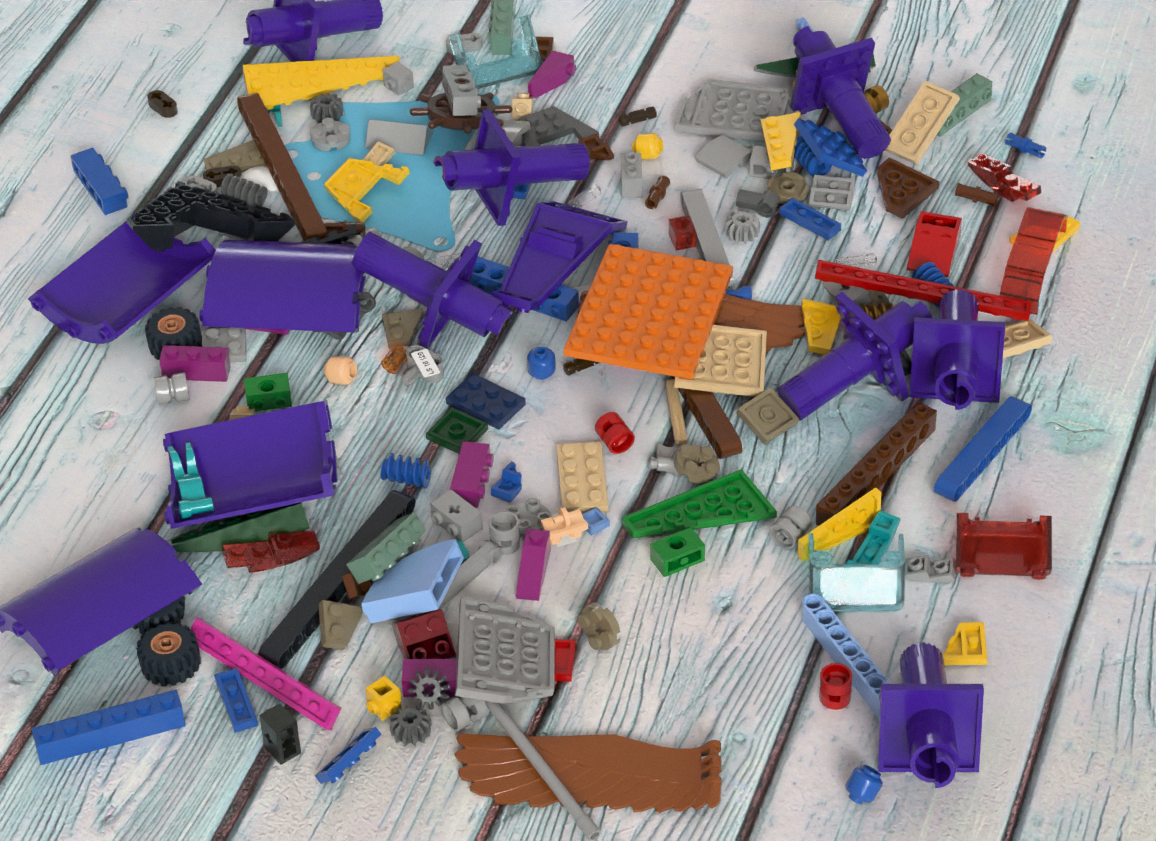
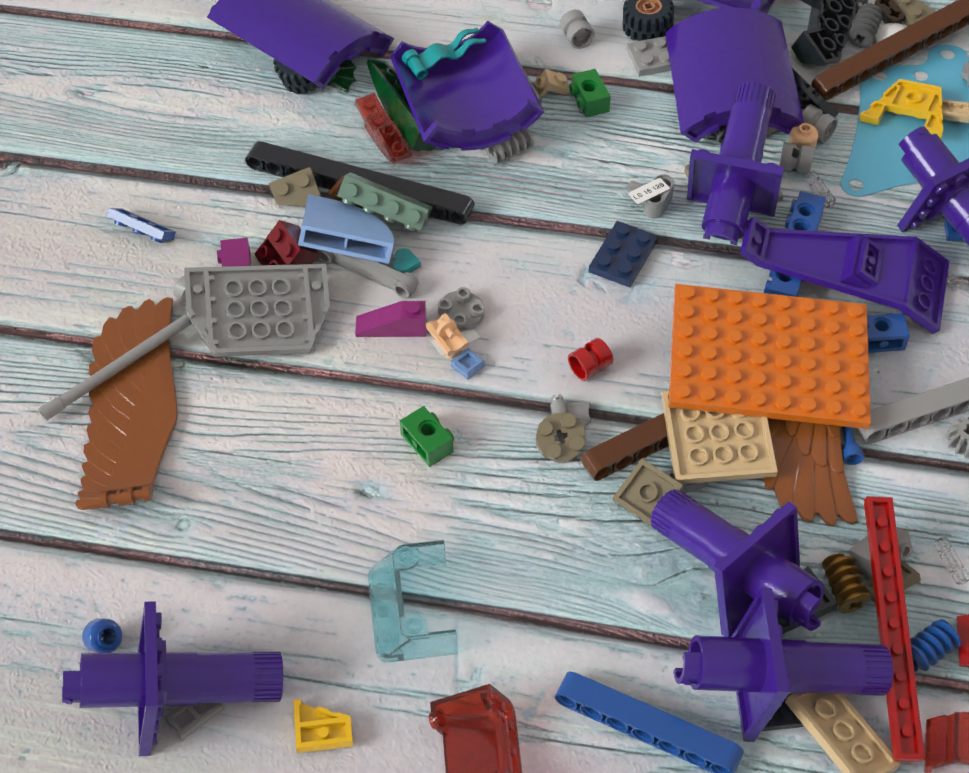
camera: 80 degrees right, 10 degrees up
(108, 727) = (167, 69): blue brick -> none
(168, 654) = (249, 87): black wheel -> none
(196, 362) = (615, 38): magenta brick -> none
(236, 700) = (204, 141): blue plate -> none
(265, 674) = (230, 158): dark pink plate -> none
(280, 733) = (153, 169): pearl dark grey brick -> none
(340, 370) = (632, 136): light nougat head -> none
(342, 227) = (844, 108): reddish brown axle -> none
(383, 698) = (203, 233): yellow brick -> none
(395, 359) = (658, 170): clear orange bush -> none
(406, 471) = (503, 206): blue piece -> none
(410, 725) = (176, 258): dark grey gear -> none
(421, 686) = (208, 255): dark grey gear -> none
(455, 428) = (575, 238): dark green tile -> none
(456, 516) = (449, 252): light grey brick -> none
(472, 472) = (509, 254): magenta brick -> none
(505, 531) = (428, 287): light grey wheel -> none
(509, 485) = (506, 289): blue slope -> none
(541, 362) = (679, 276): blue head -> none
(564, 659) = (274, 364): red tile -> none
(582, 476) = (527, 345): tan plate -> none
(599, 626) = (303, 378): dark tan plate -> none
(676, 413) = (629, 415): tan axle -> none
(682, 232) = (935, 376): clear red brick -> none
(713, 504) = (505, 463): green wing -> none
(790, 527) = (483, 536): light grey wheel -> none
(820, 325) = (828, 533): yellow wing -> none
(835, 686) = (240, 597): red wheel -> none
(844, 525) = (483, 583): yellow wing -> none
(844, 649) = (294, 598): light blue beam -> none
(878, 539) = (449, 616): teal slope -> none
(880, 461) = (589, 609): reddish brown brick -> none
(925, 570) = (438, 678): light grey slope -> none

